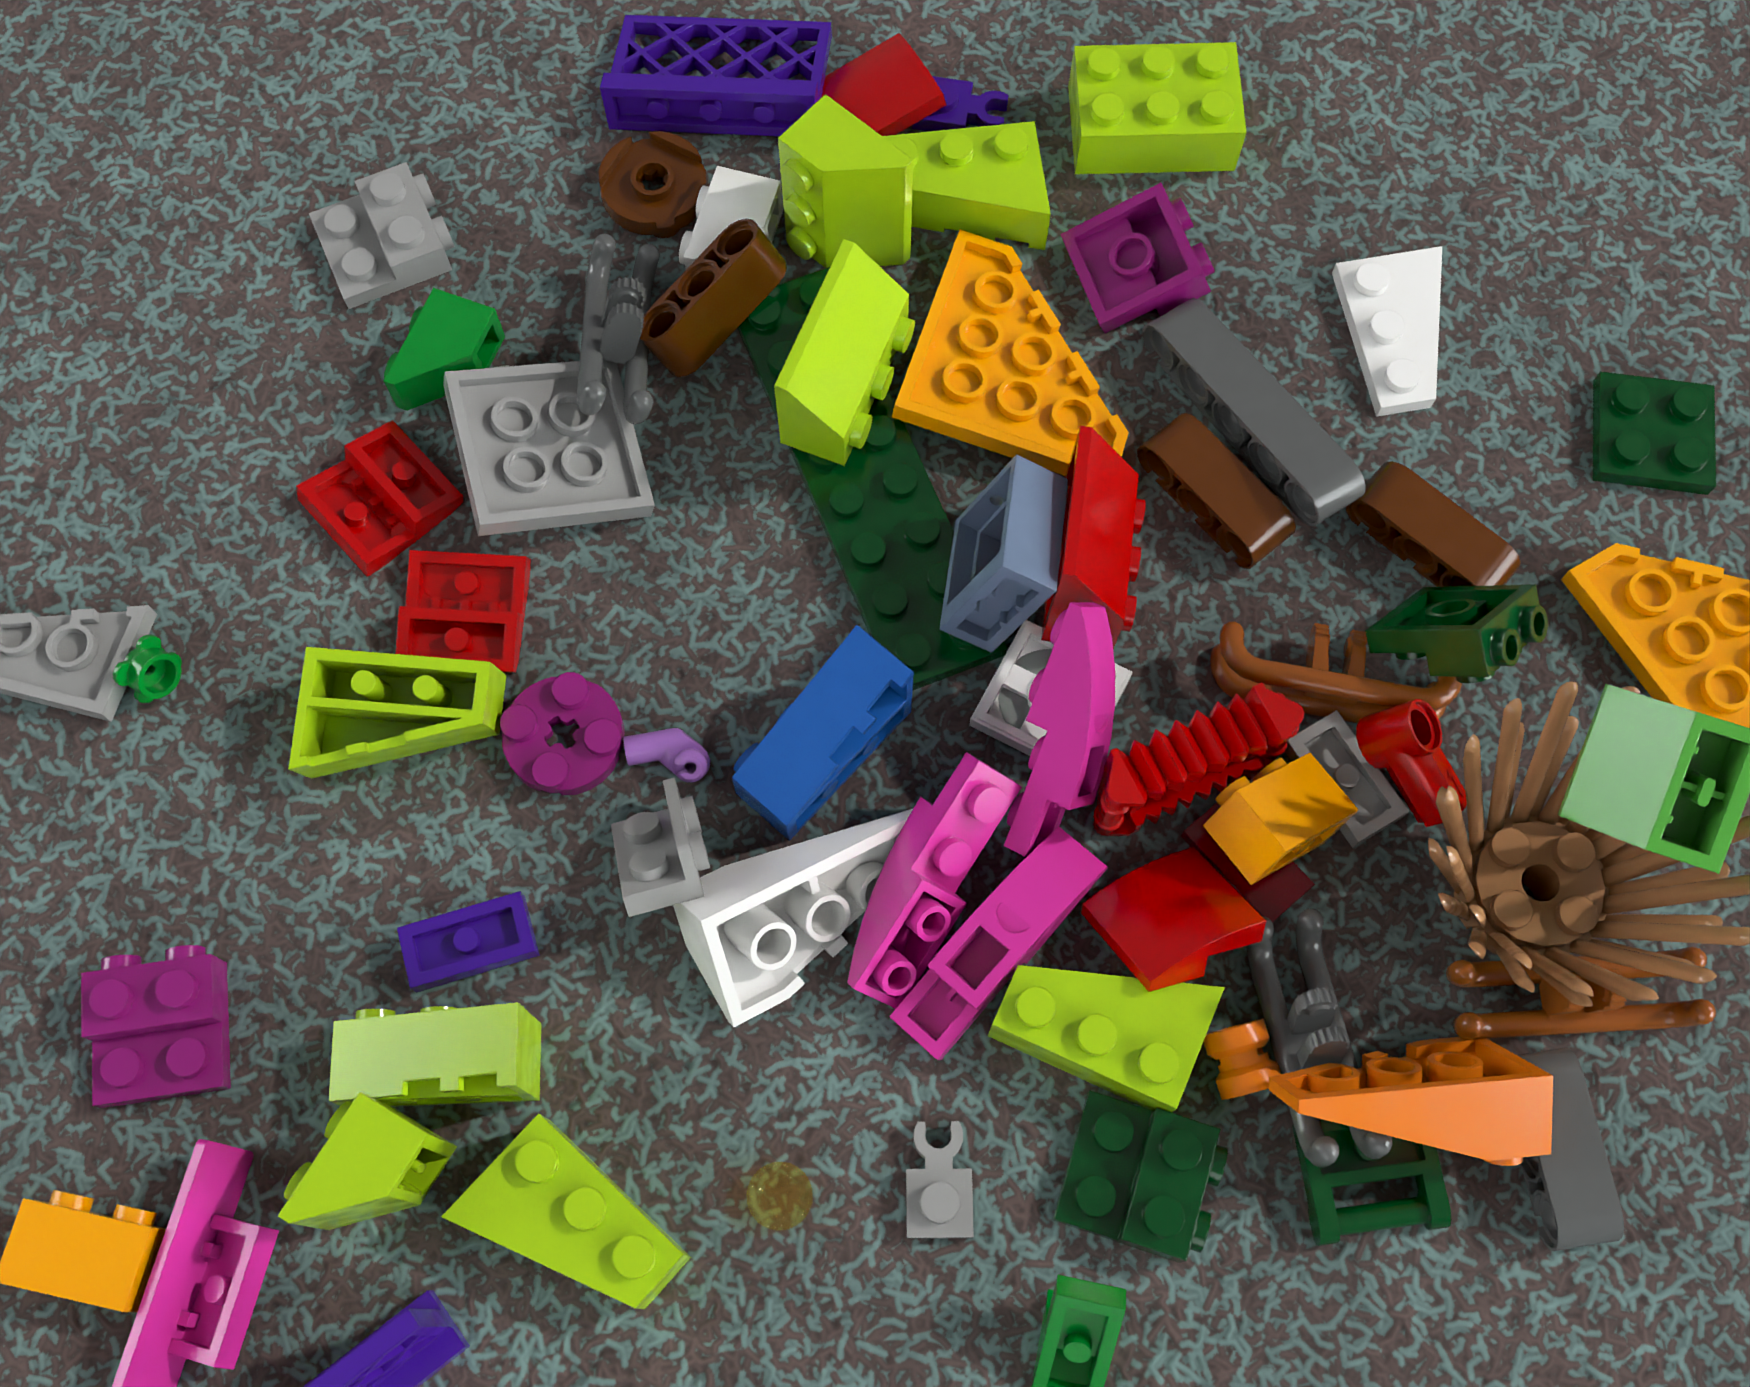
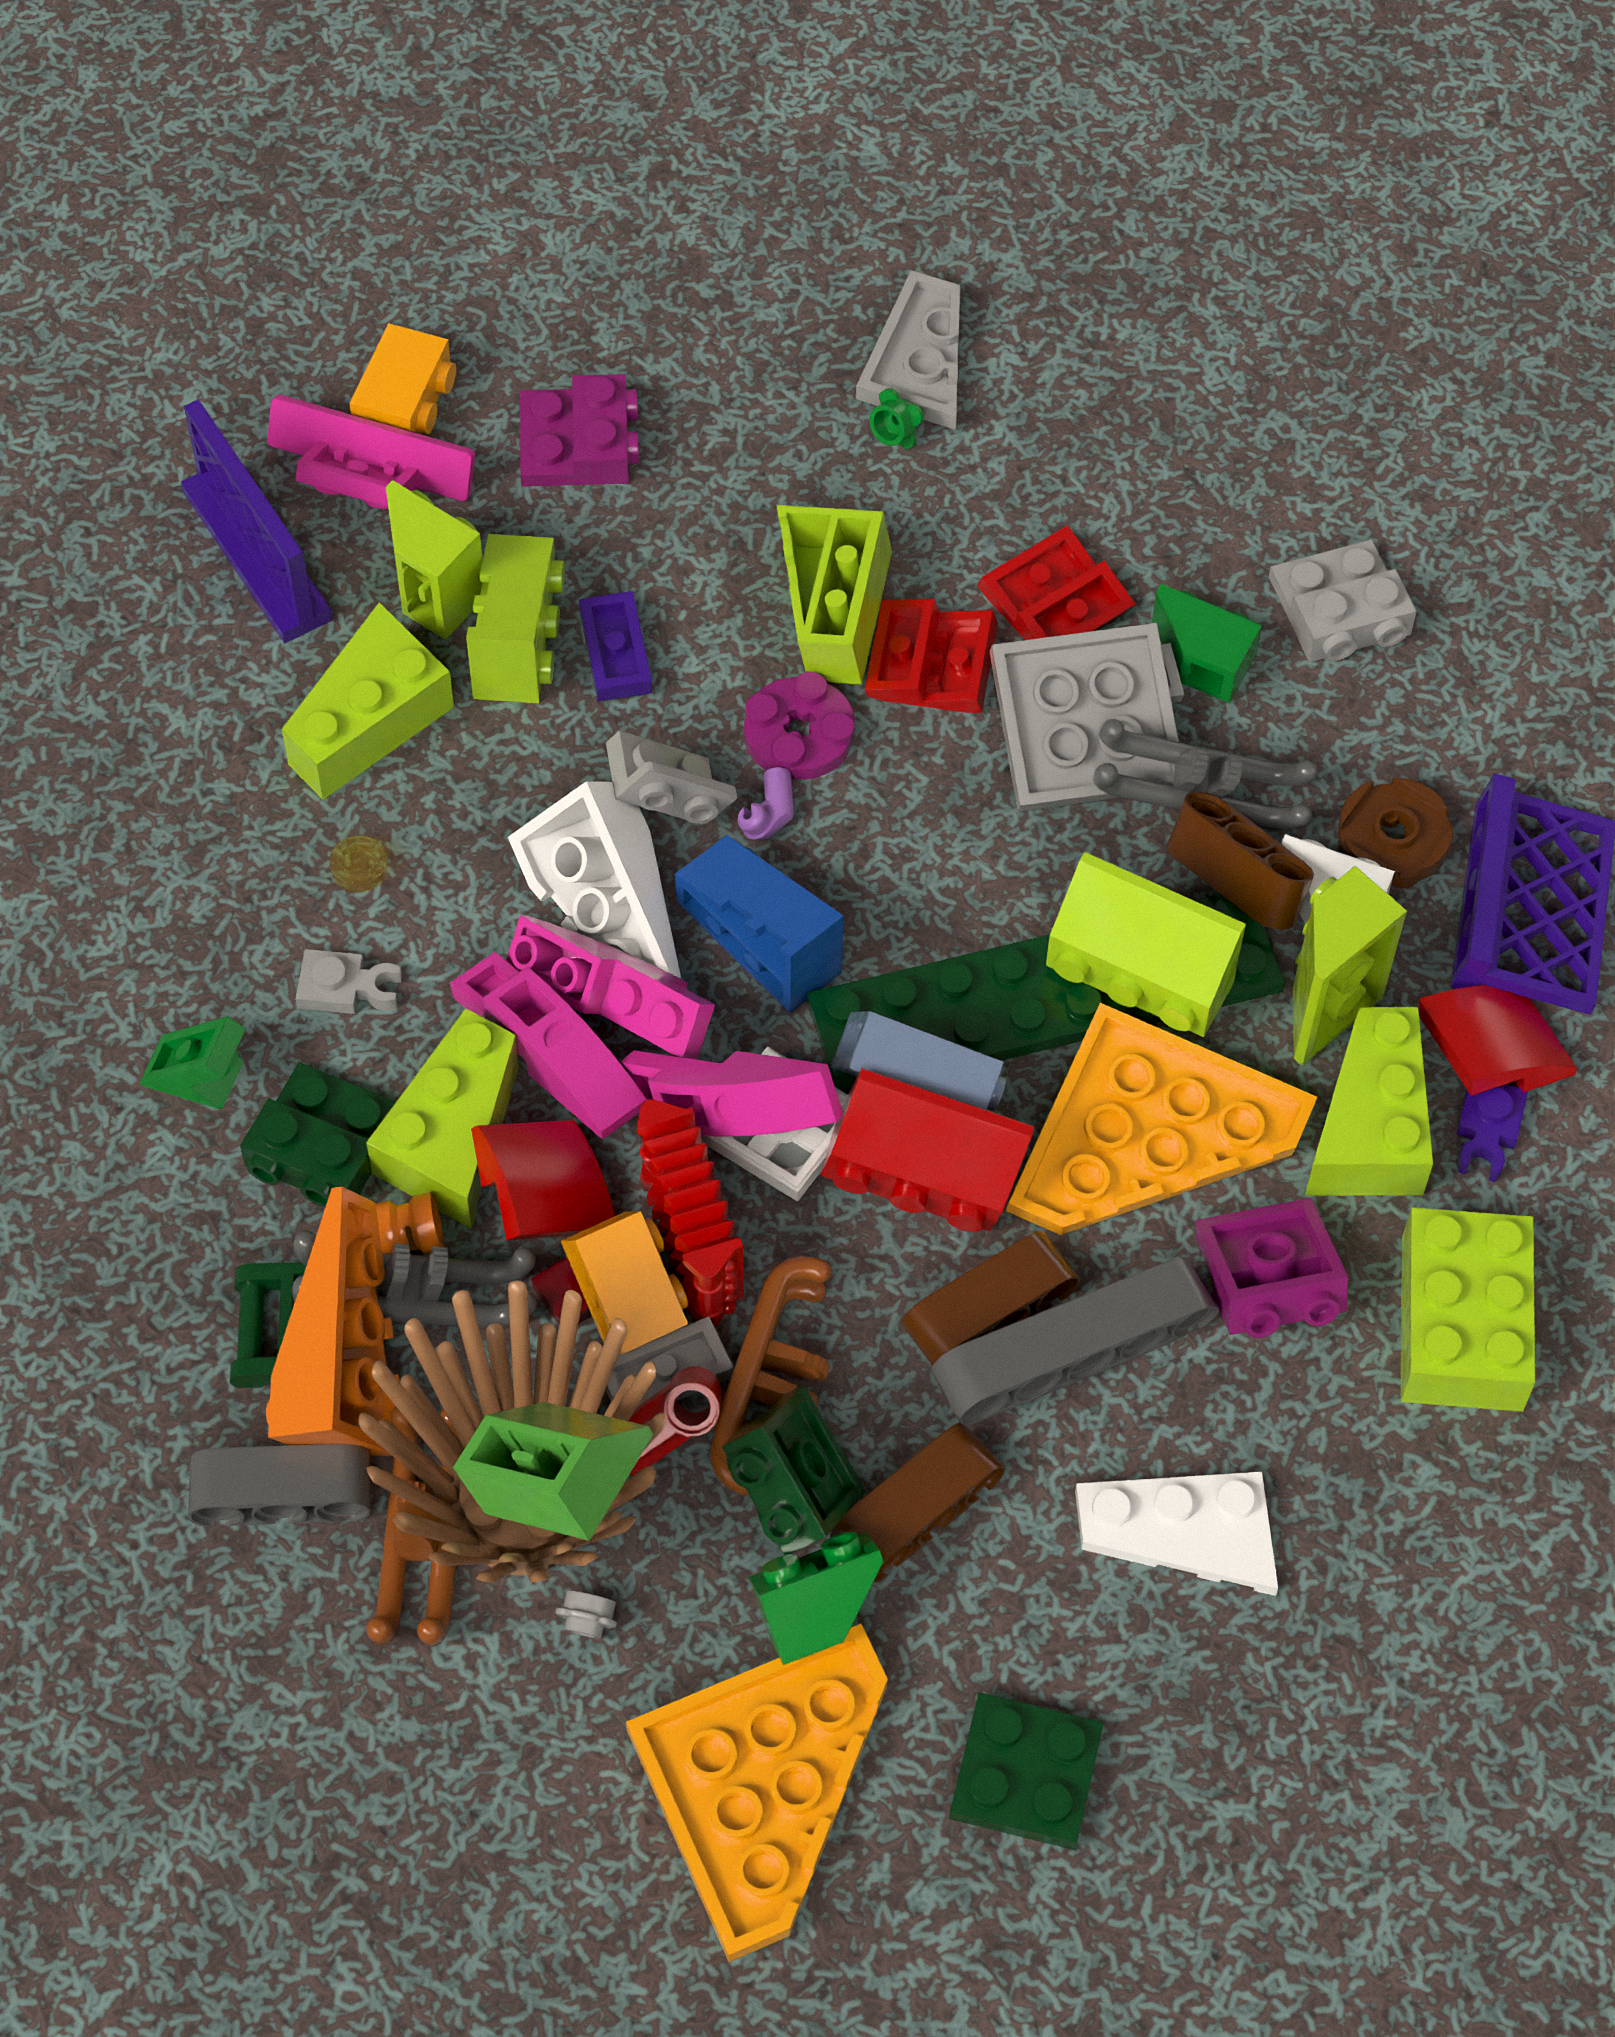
camera: 95 degrees right, 10 degrees down
(1577, 597) = (816, 1597): none -> green slope

